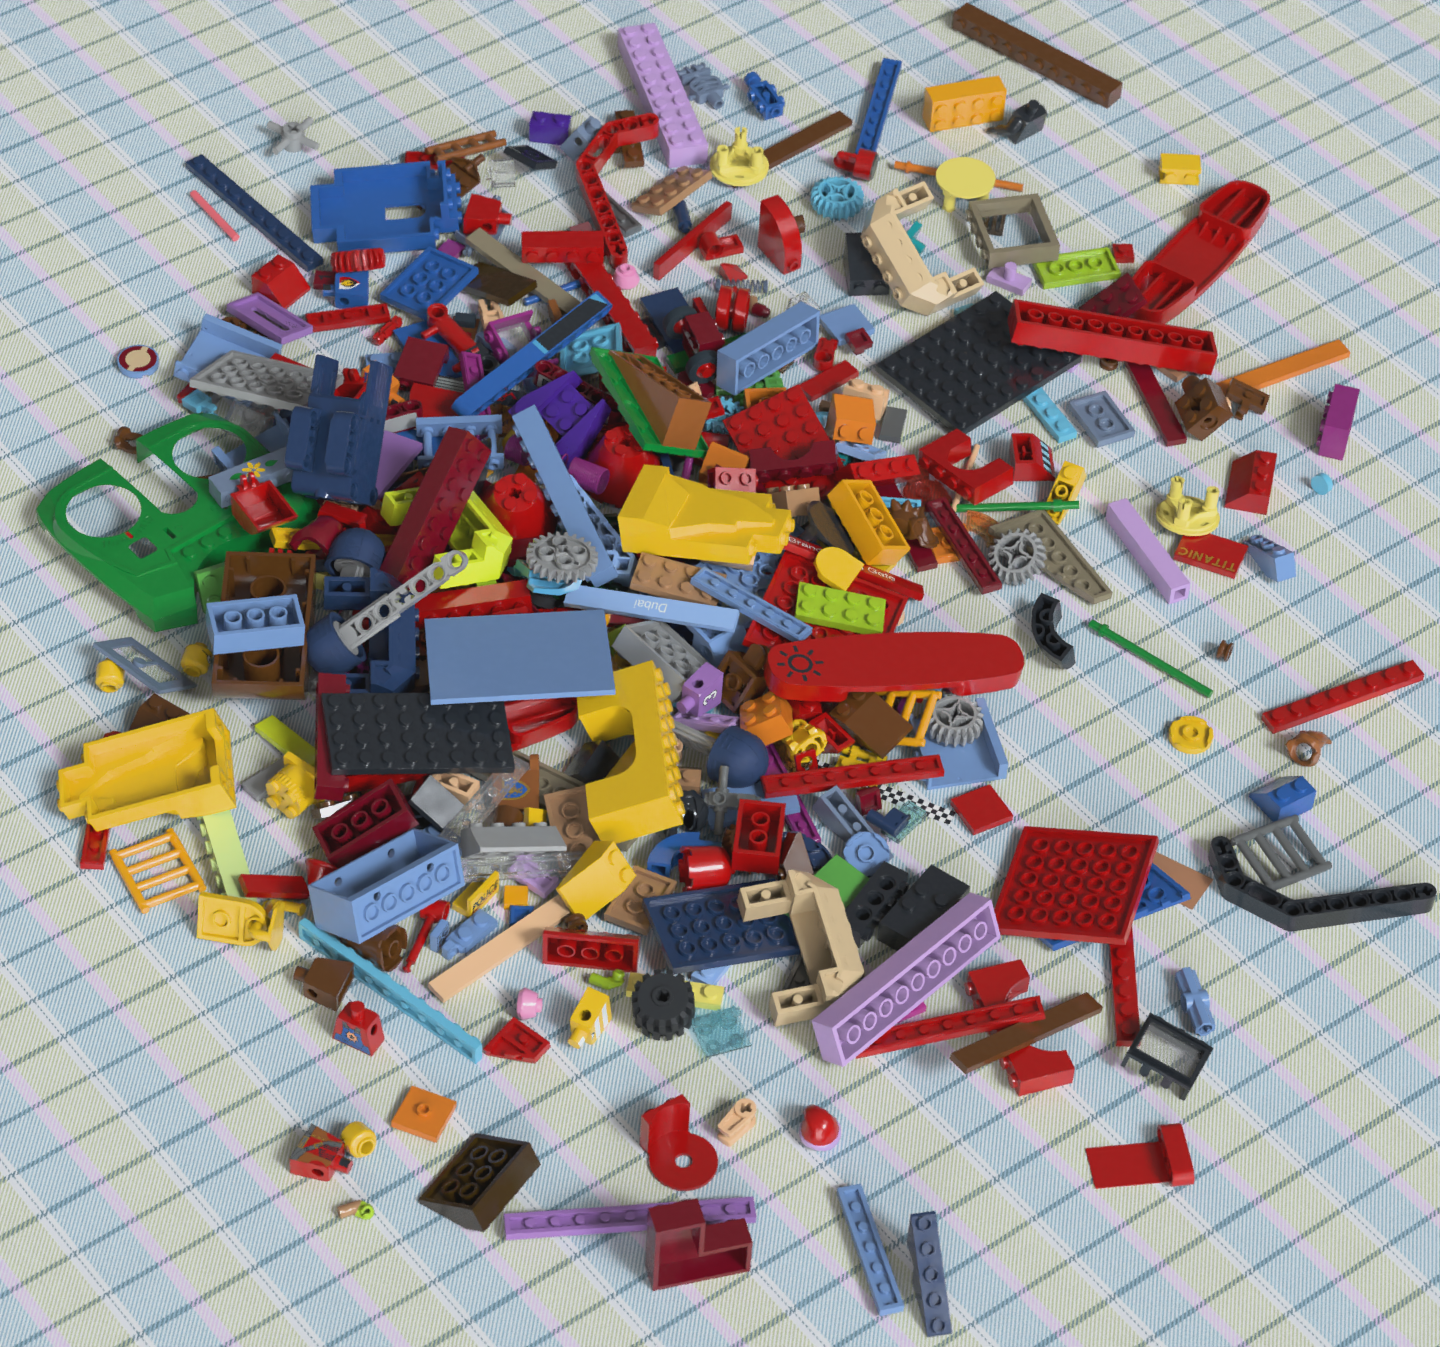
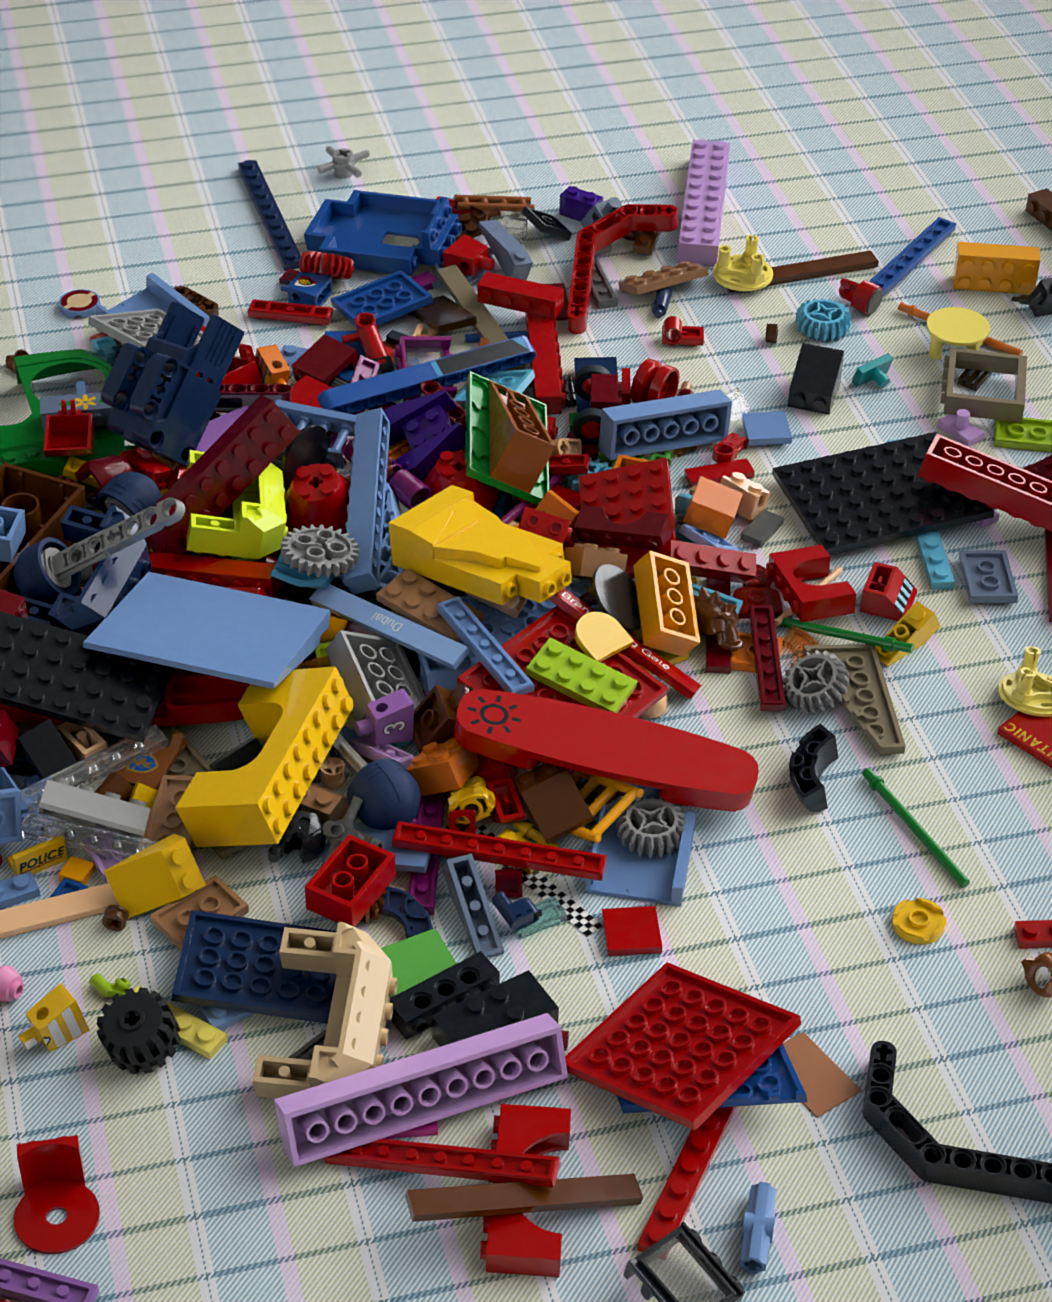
camera: 25 degrees right, 5 degrees down
(214, 215) = (233, 208): coral bar -> none
(244, 308) = (227, 292): medium lavender piece -> none
(280, 282) = (248, 270): red slope -> none
(387, 330) = (319, 330): red axle -> none
(515, 199) = (507, 250): none -> sand blue slope
(590, 949) = (109, 947): red slope -> none
(626, 276) = (574, 338): bright pink cone -> none
(667, 852) = (267, 874): blue arch -> none
(691, 240) = (652, 324): red tile -> none
(702, 85) = (750, 204): sand blue torso -> none
(704, 867) = (281, 898): red cylinder -> none
(720, 1031) = (191, 1082): clear light blue hinge -> none
(731, 271) = (681, 359): red slope -> none
(737, 1122) = (139, 1192): light nougat piece -> none
(764, 96) = (801, 223): blue brick -> none
(765, 284) = (705, 377): sand blue piece -> none
(779, 235) = (739, 332): red brick -> none
(793, 855) = (381, 919): slope -> none
(819, 1129) = (226, 1231): red piece -> none
(858, 341) = (768, 444): dark red tile -> none
(866, 852) = (470, 934): medium blue tile -> none
(901, 262) = (844, 379): tan wedge -> none
(1108, 364) = (1025, 528): reddish brown bush -> none
(1147, 551) = (969, 717): lavender brick -> none
(1225, 650) = (1004, 841): reddish brown bush -> none
(1285, 797) = (993, 1024): blue slope -> none
(1286, 878) = (948, 1116): dark grey bar -> none

